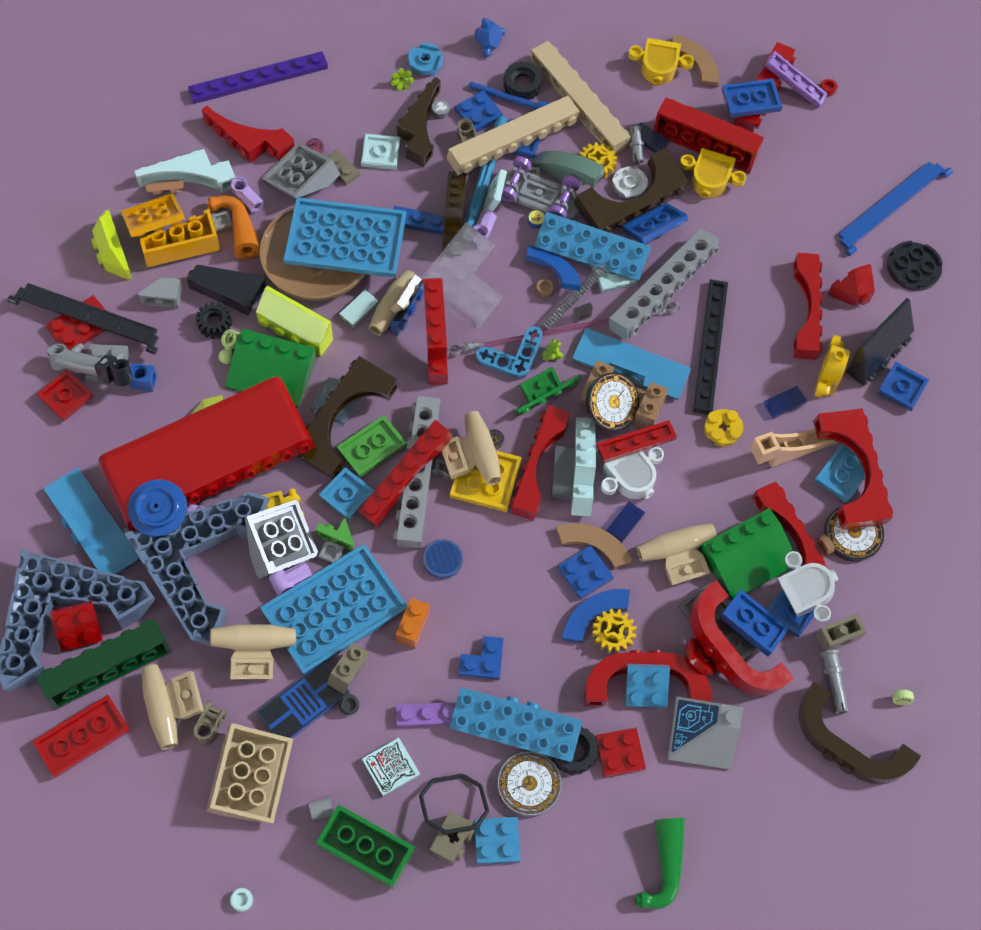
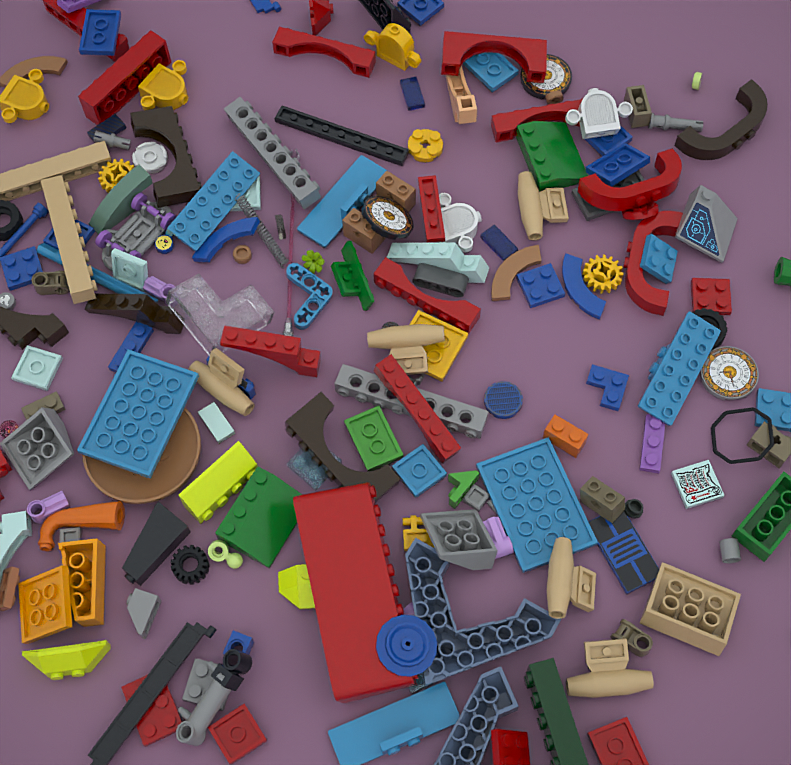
camera: 70 degrees left, 0 degrees up
(655, 223) = (205, 144): blue plate -> none

